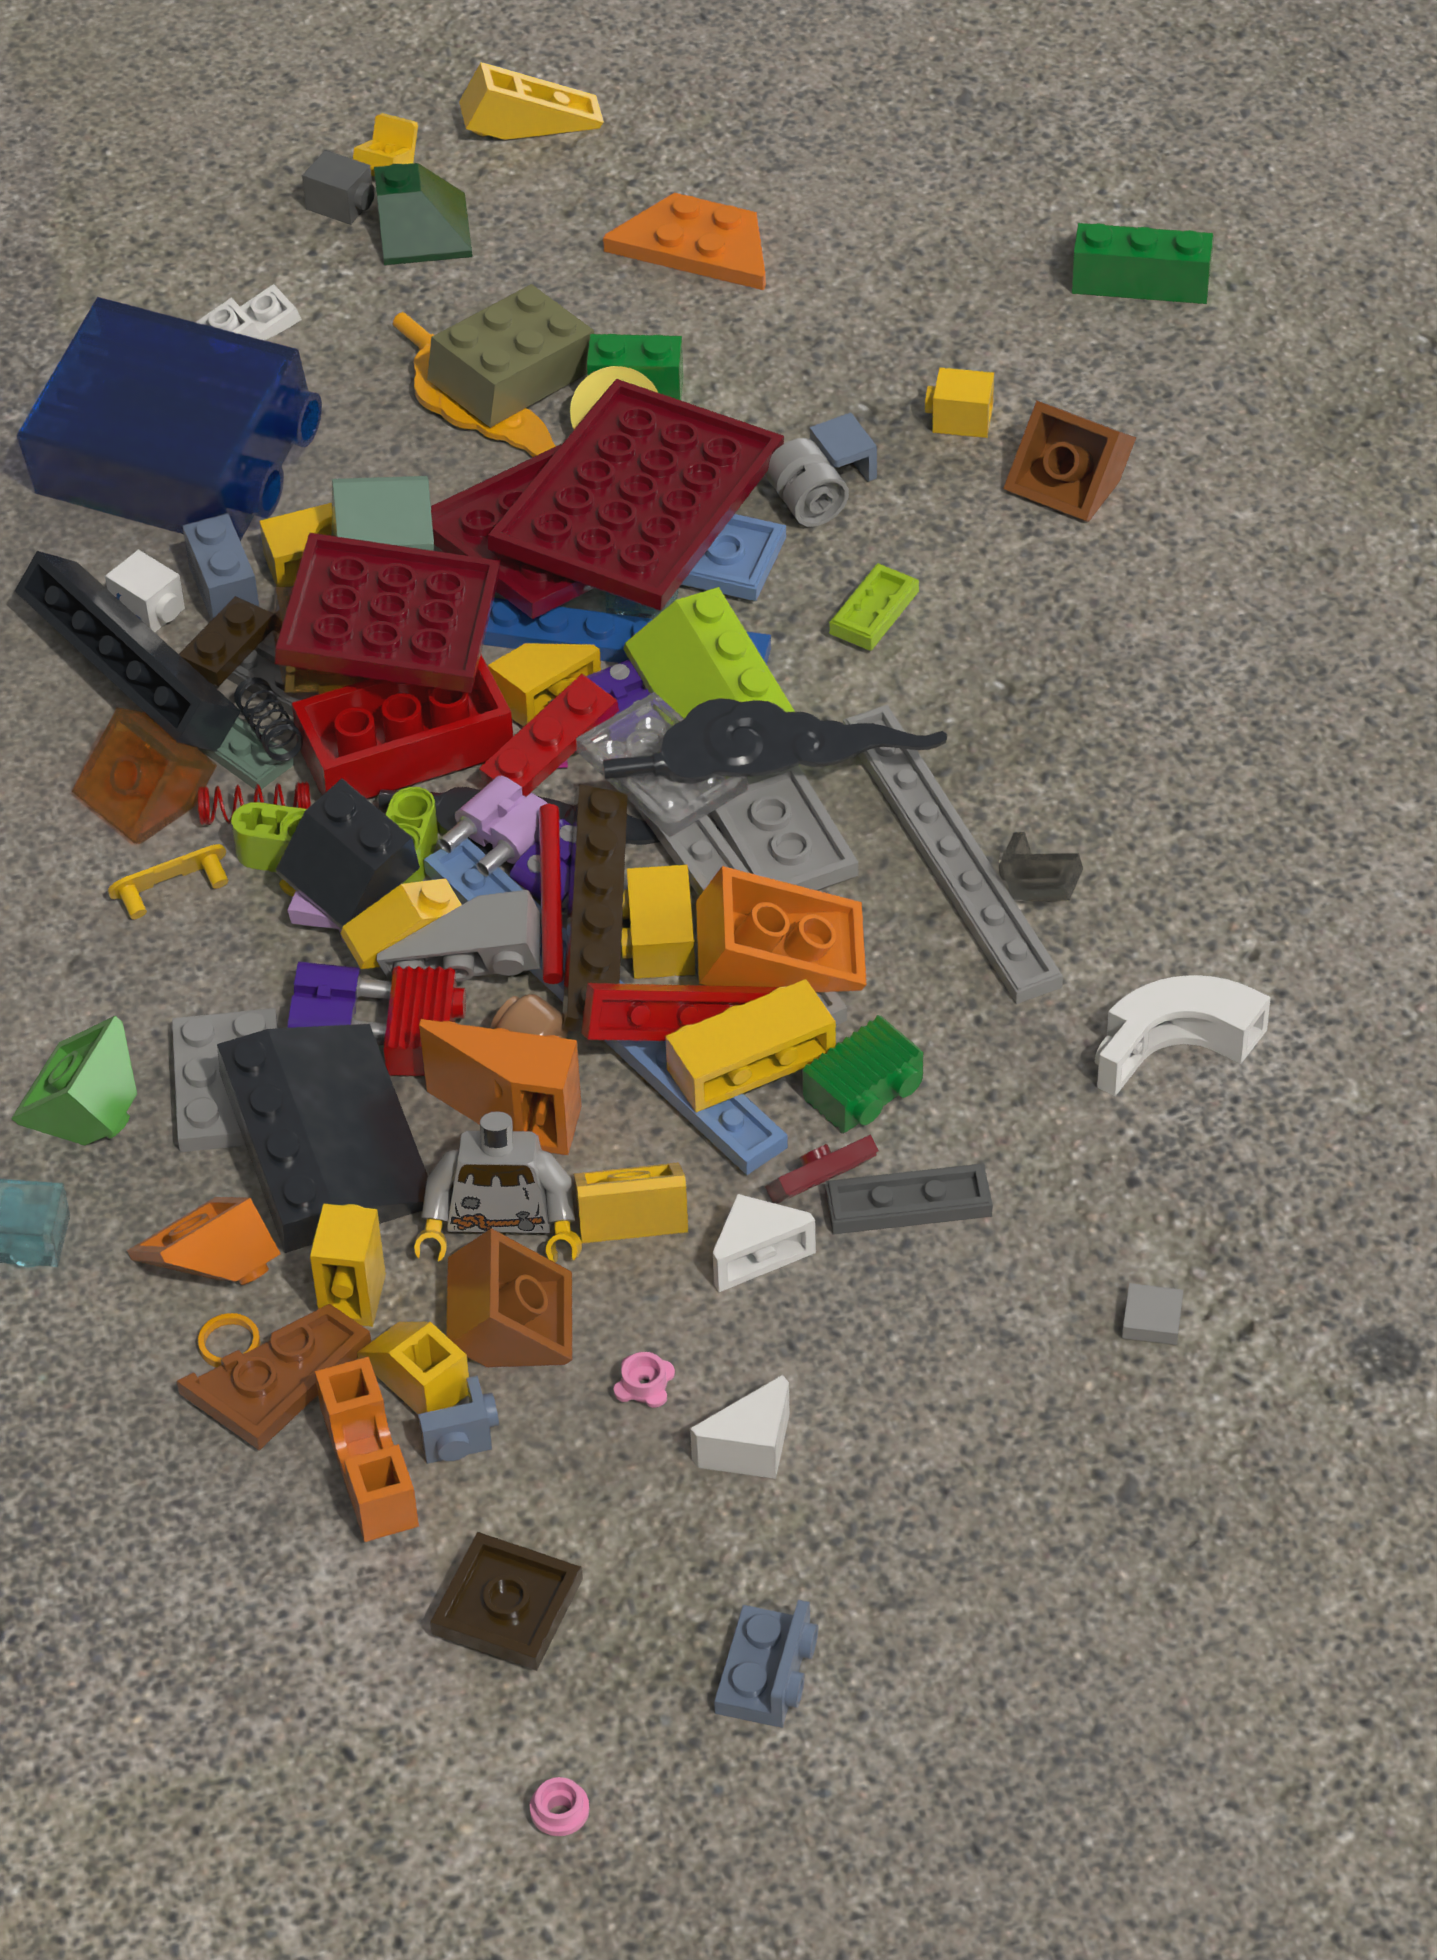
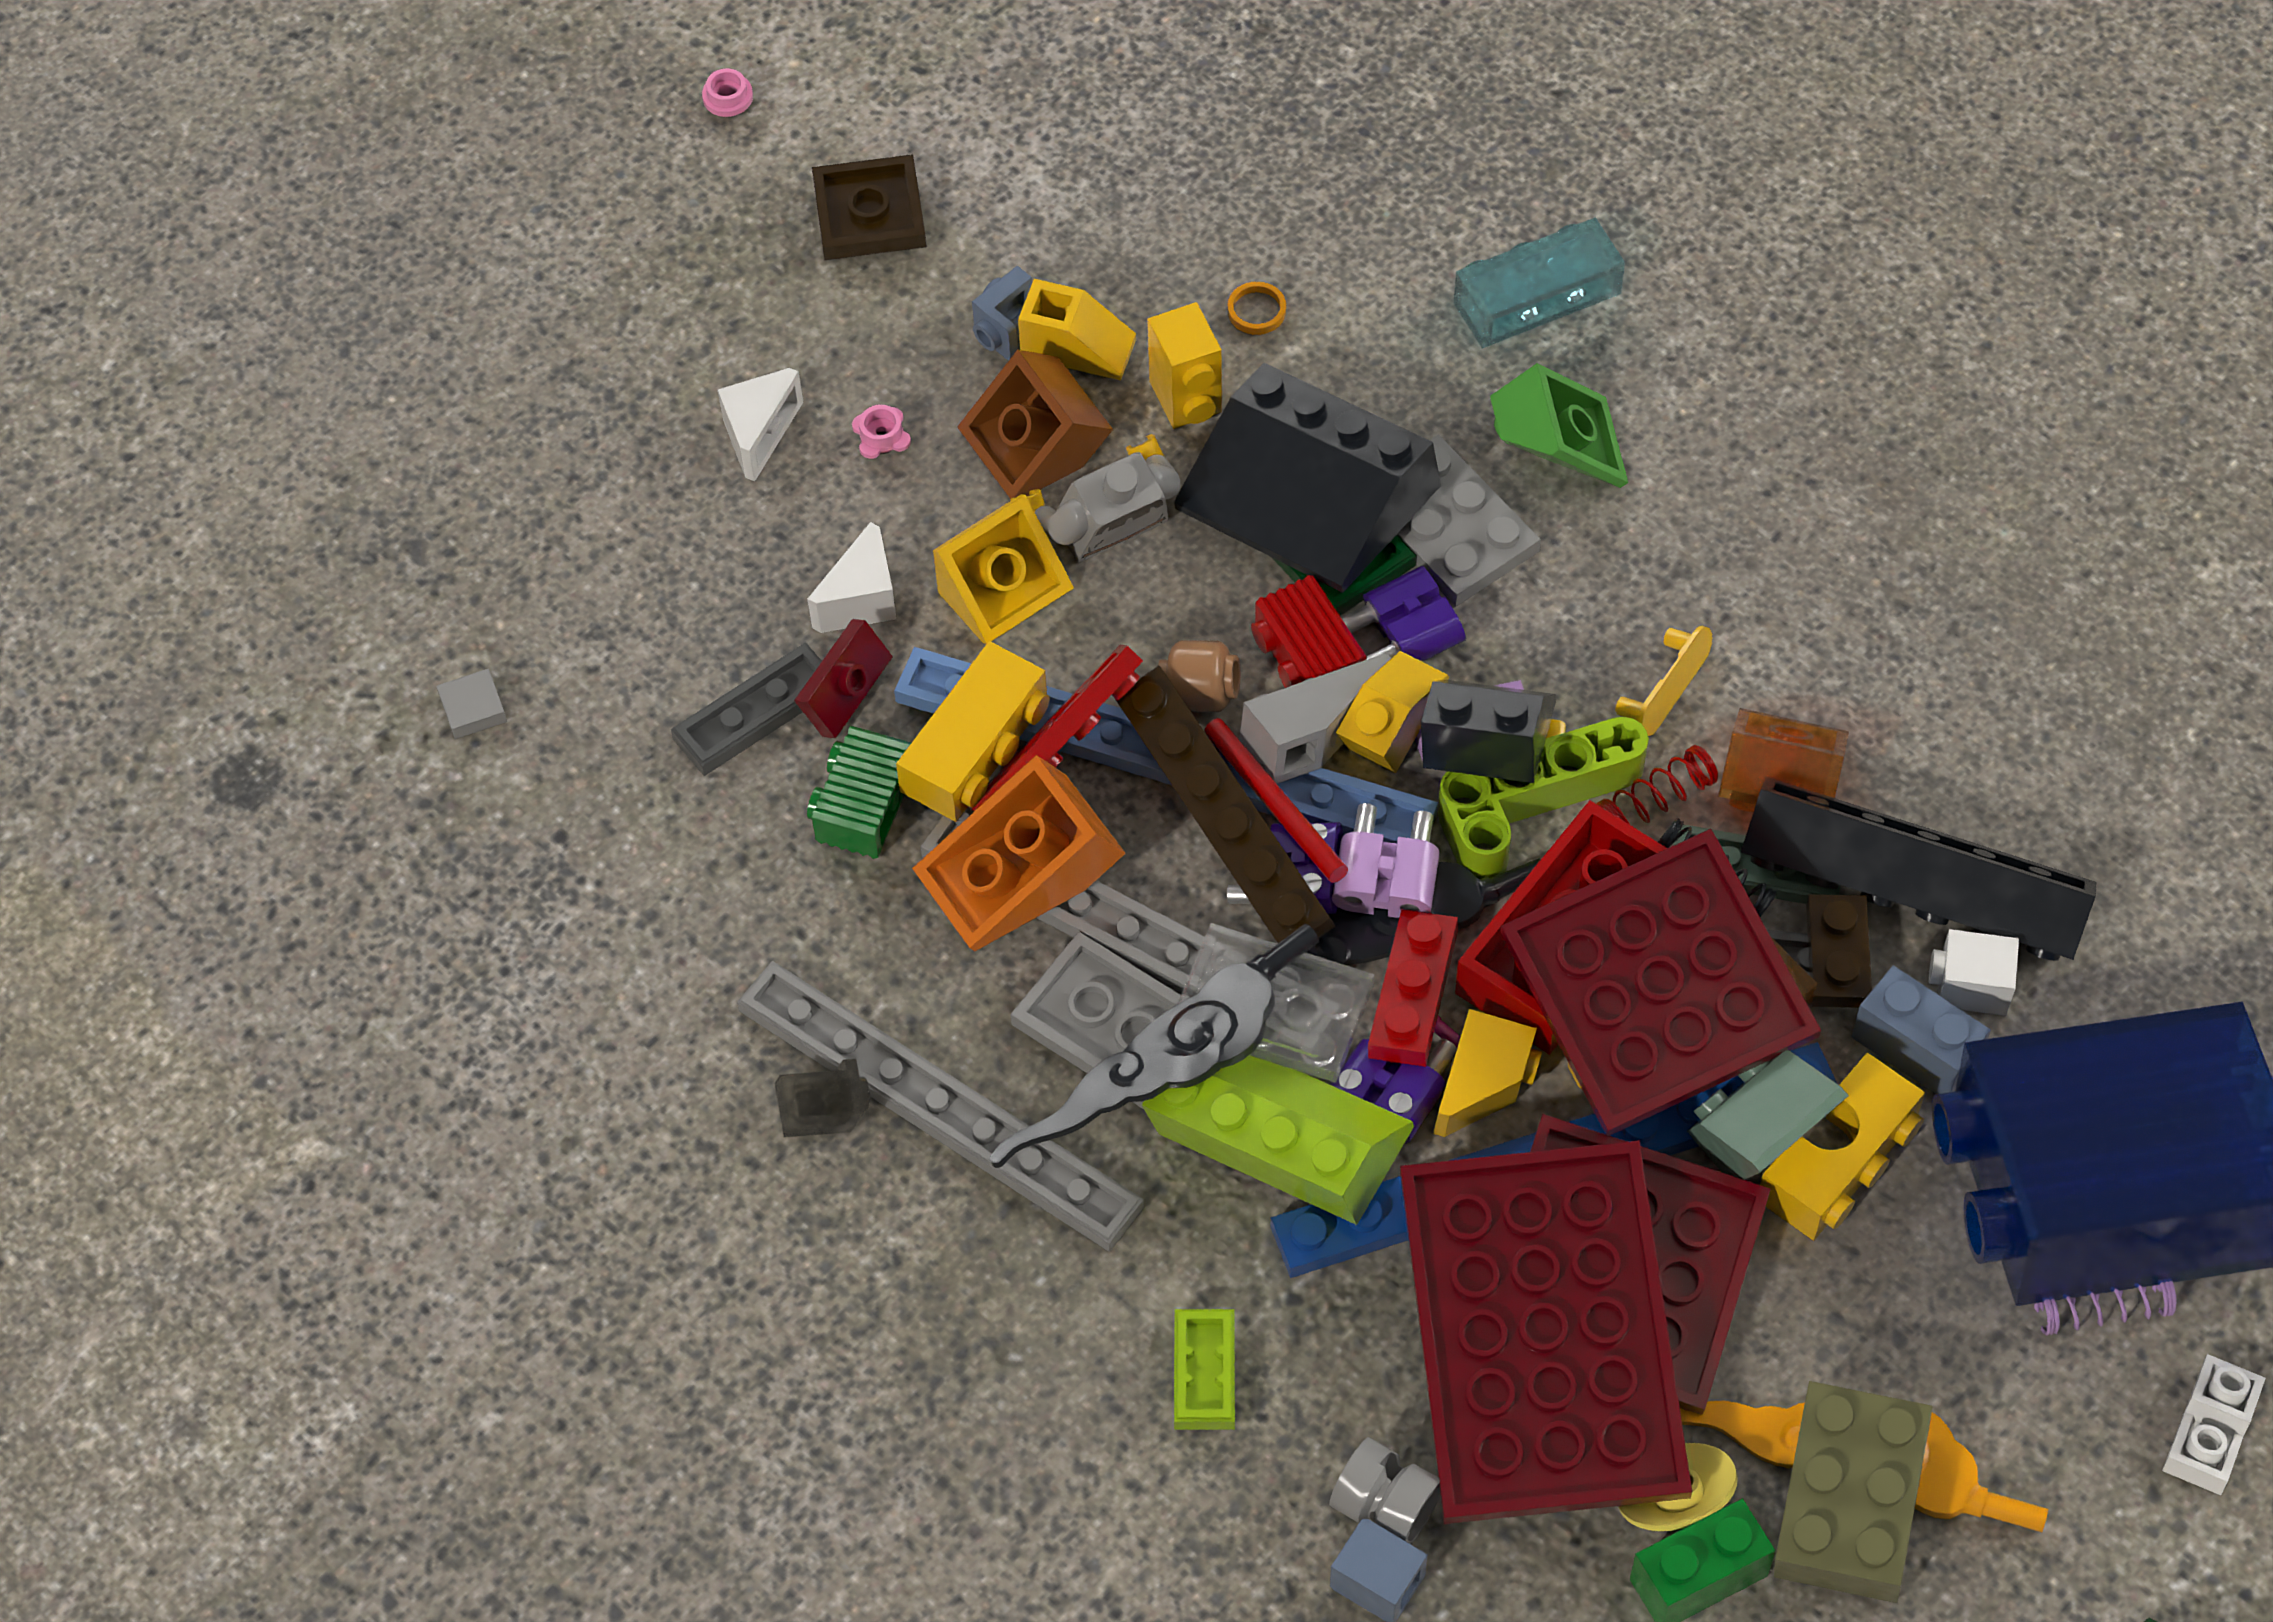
camera: 150 degrees right, 10 degrees up
(214, 1241) = (1336, 342): orange slope -> none
(274, 1382) = (1192, 266): dark orange wing -> none
(365, 1451) = (1026, 225): orange arch -> none
(506, 1072) = (1175, 589): orange slope -> none
(660, 922) = (1166, 854): yellow brick -> none
(739, 558) = (1389, 1362): medium blue plate -> none
(765, 1663) = (635, 263): sand blue bracket -> none
(1177, 1012) = (596, 1011): white arch -> none

